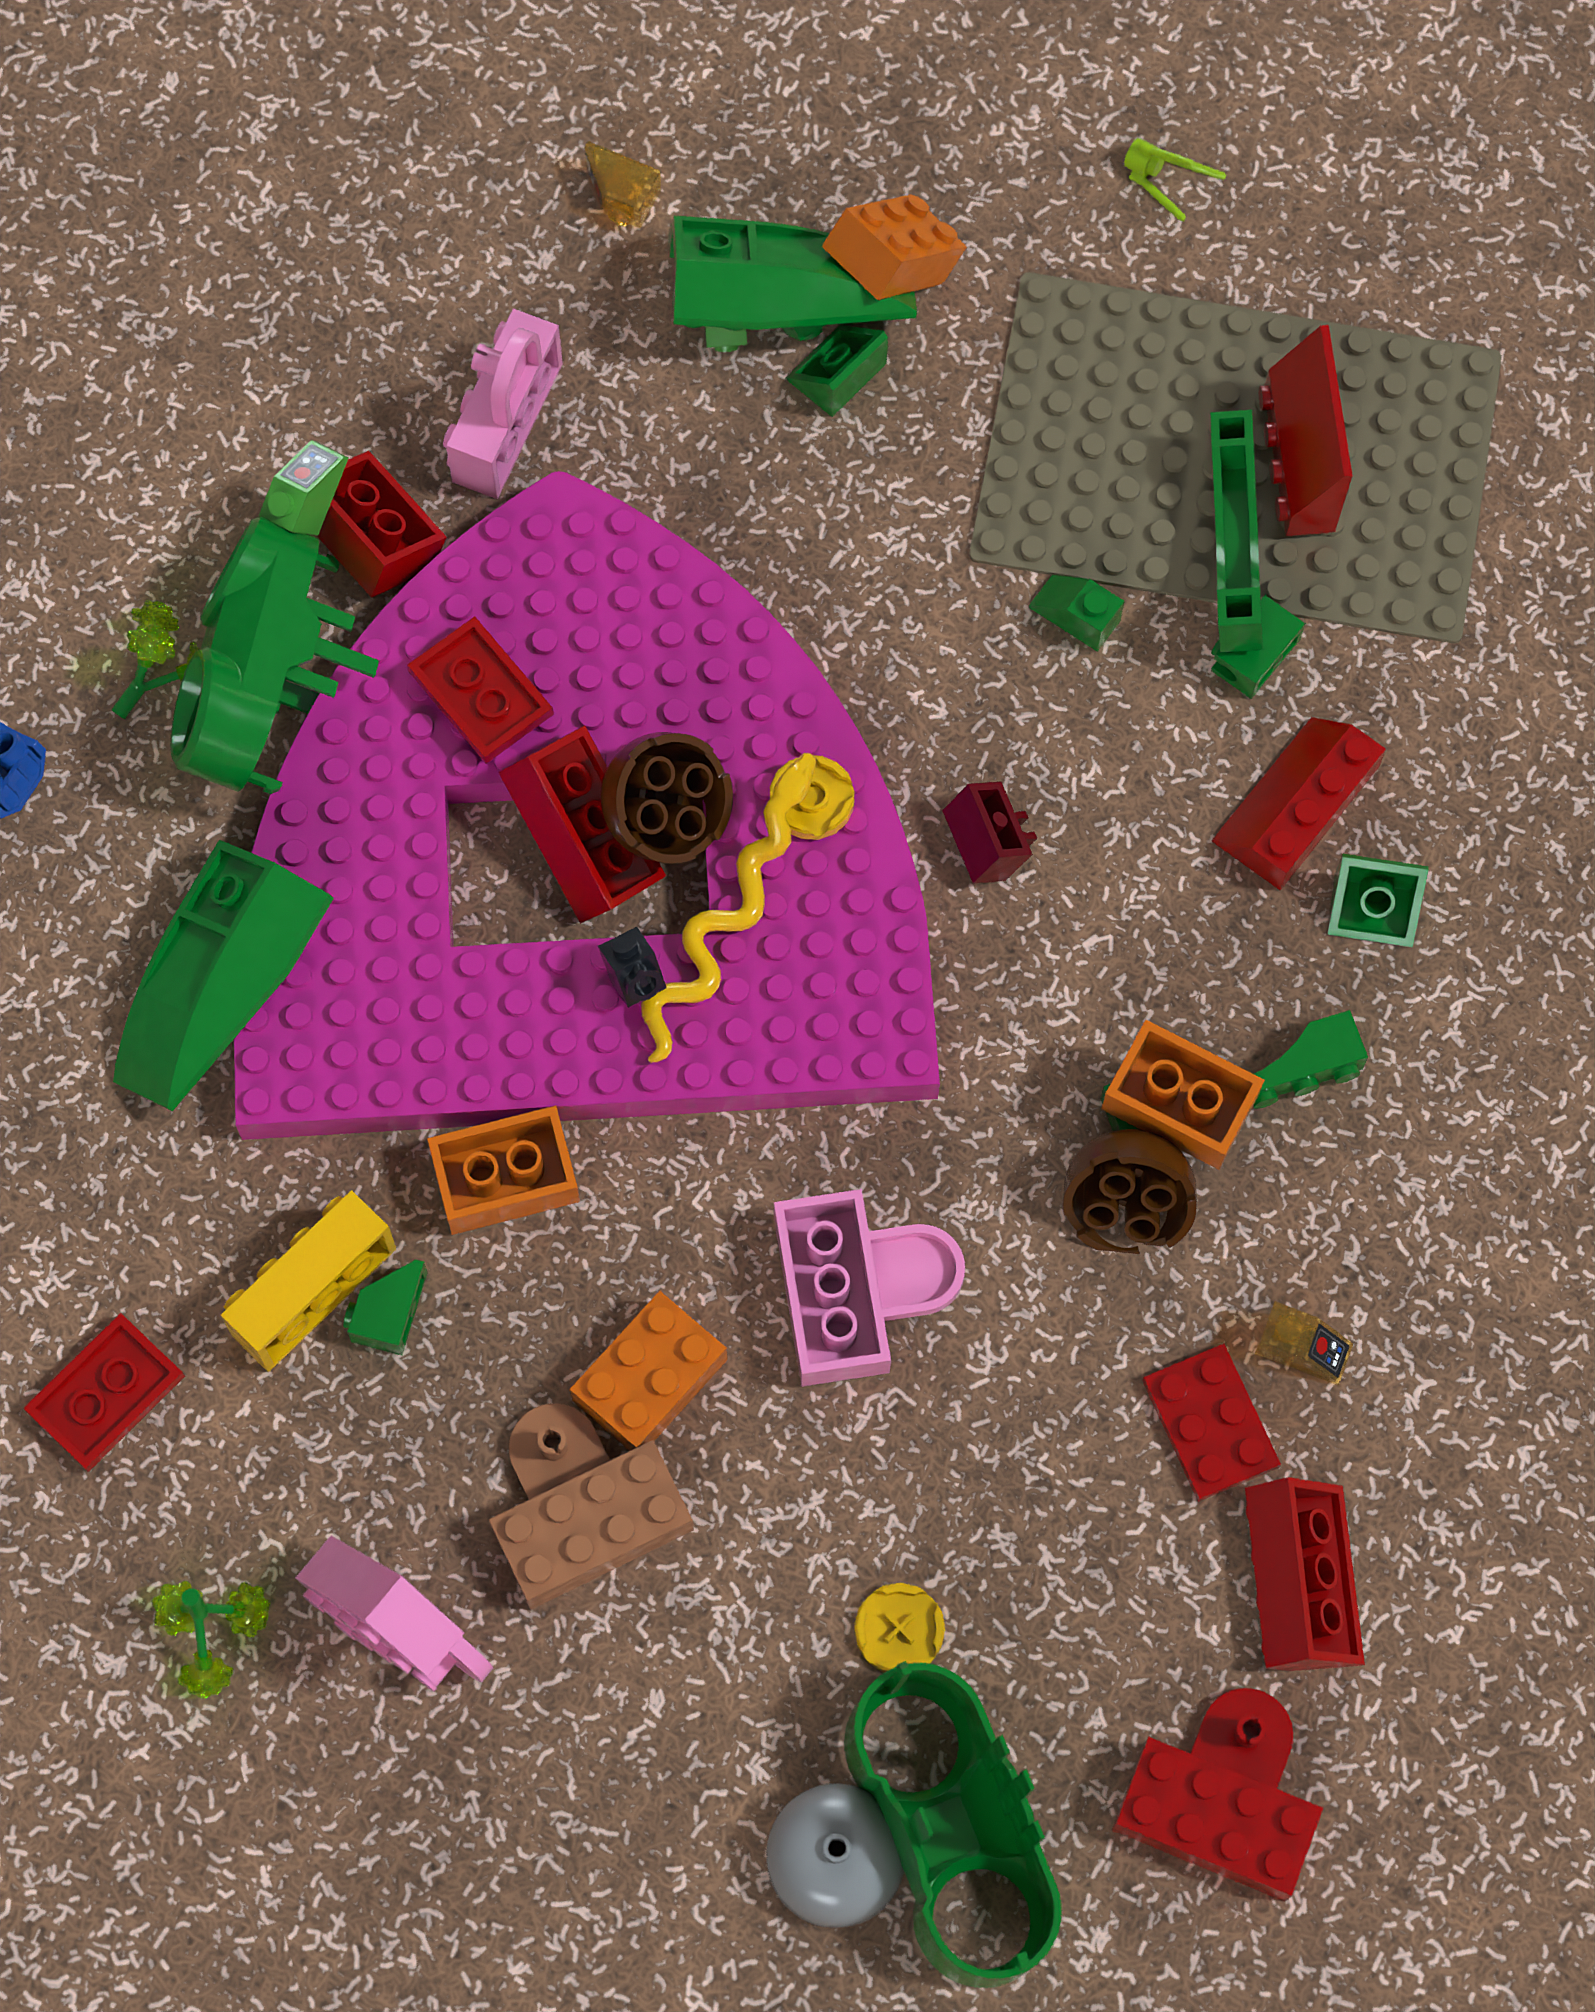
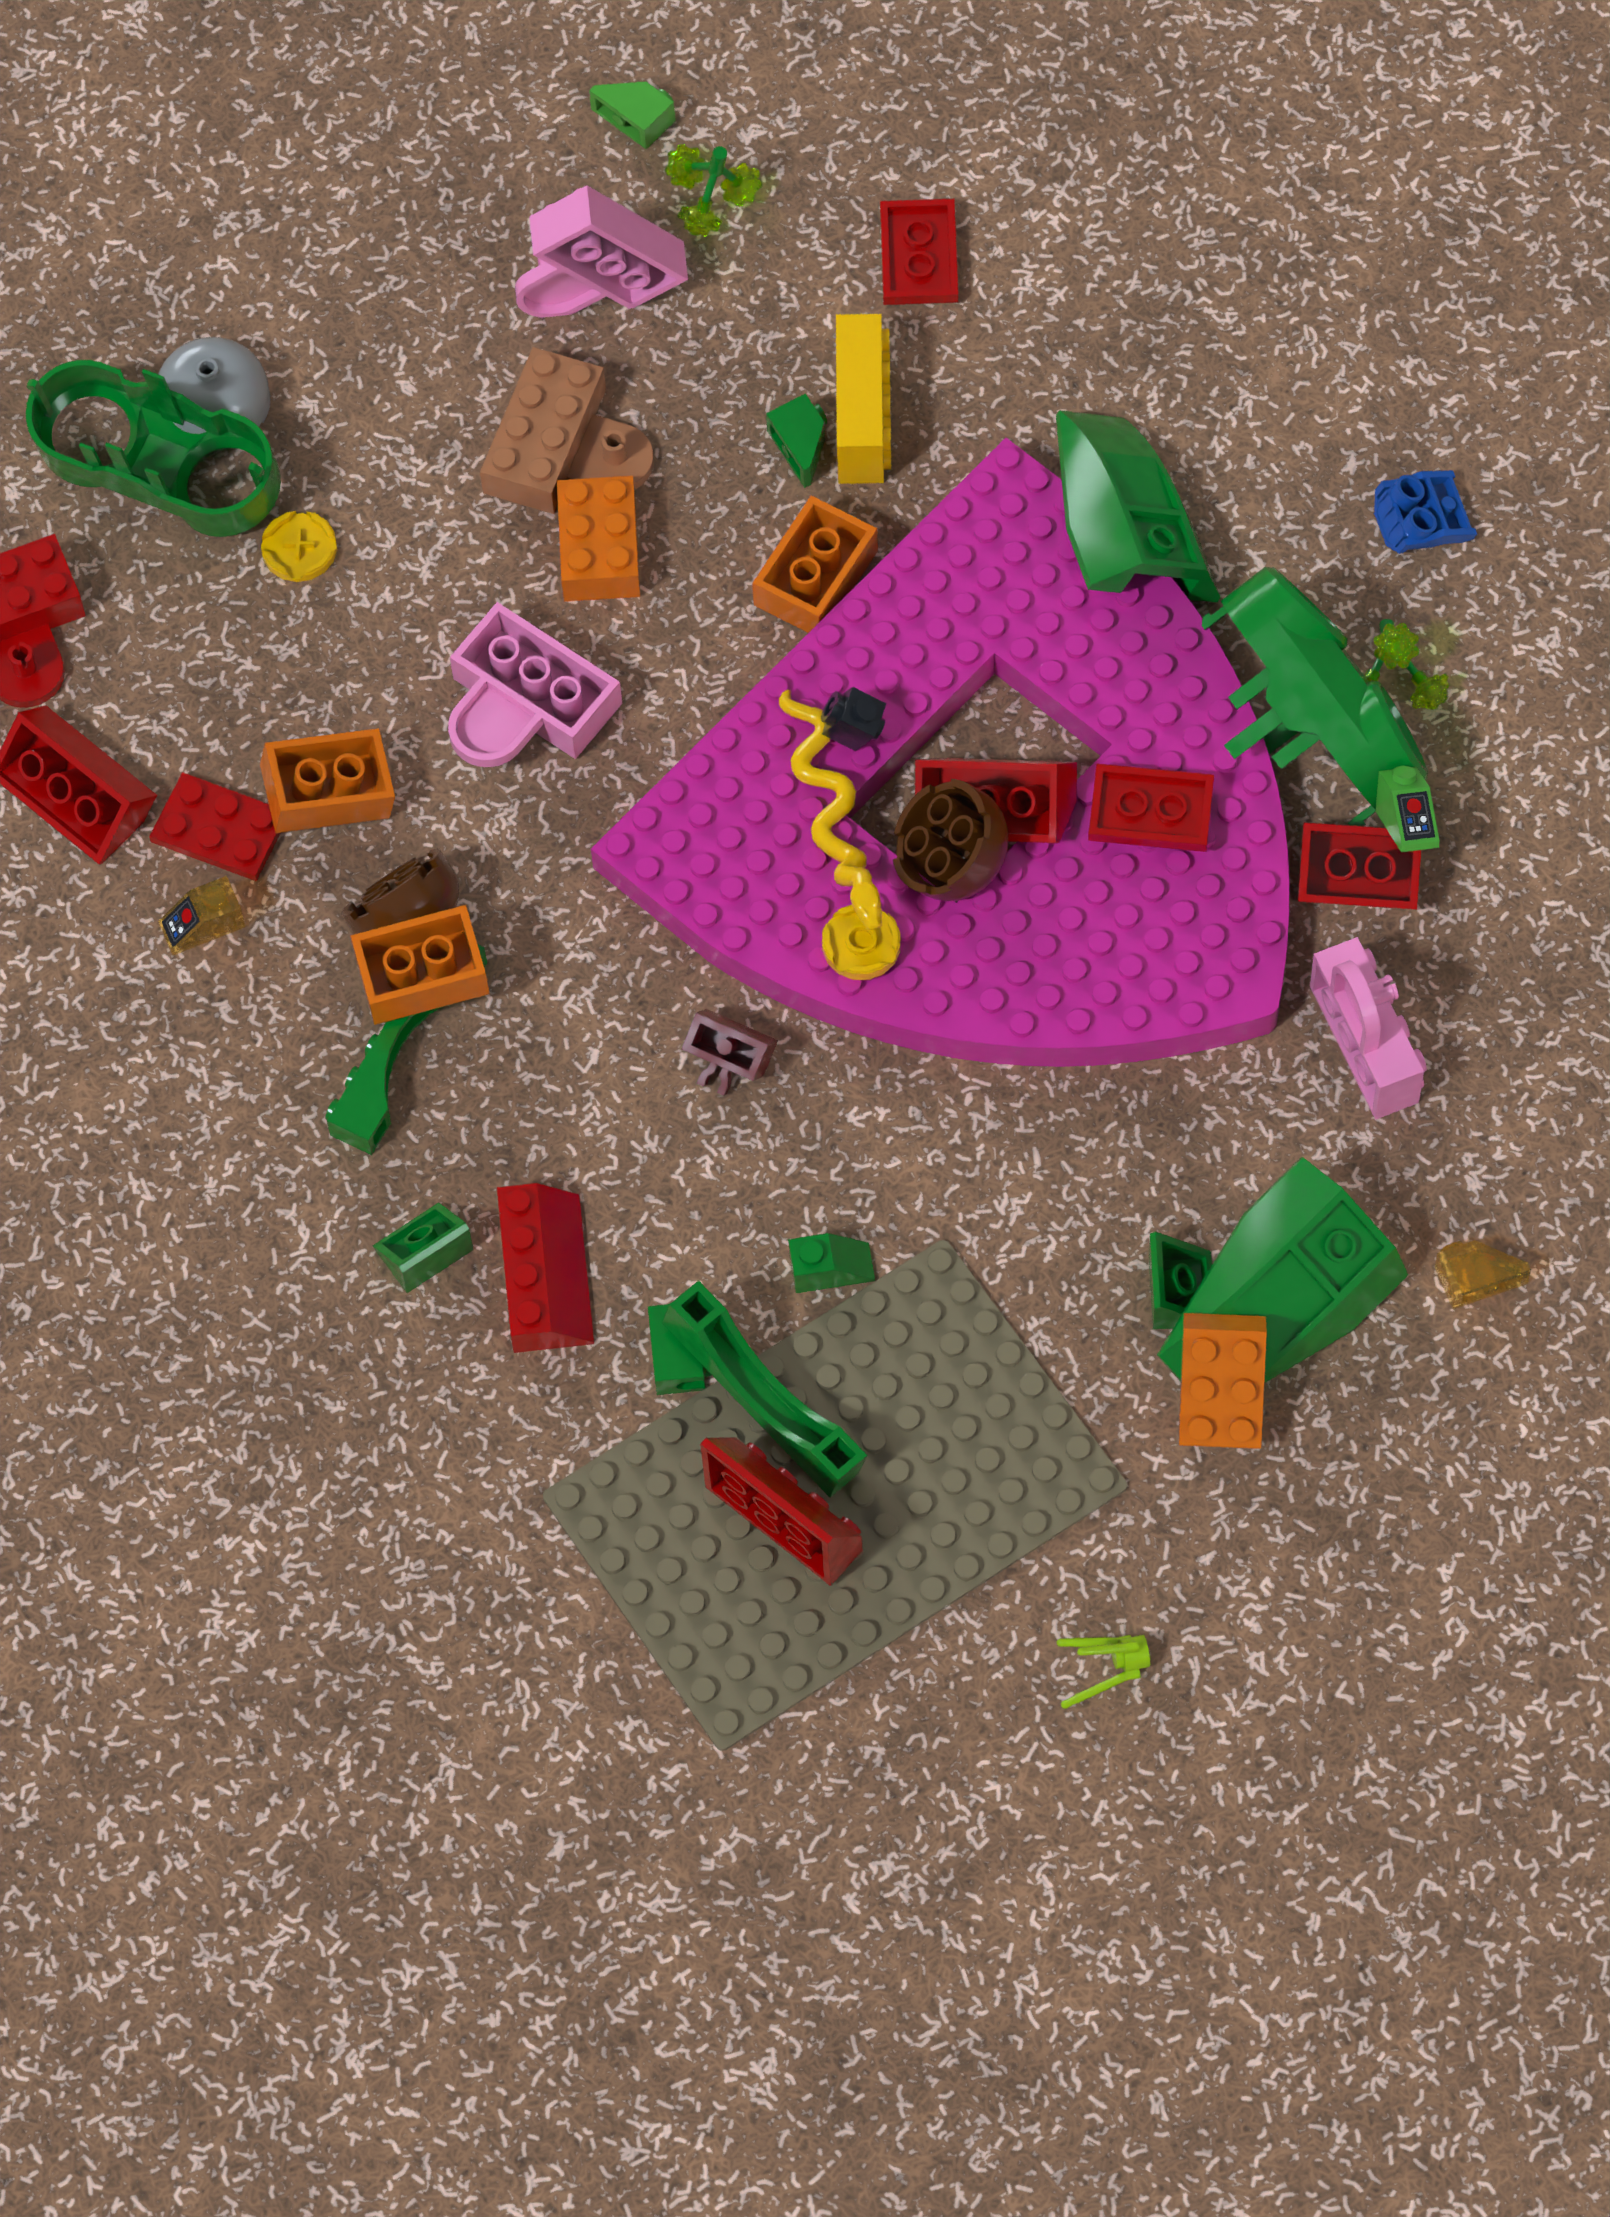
camera: 140 degrees right, 5 degrees down
(186, 1776) = (634, 109): none -> bright green slope
(1094, 1354) = (327, 780): none -> orange brick

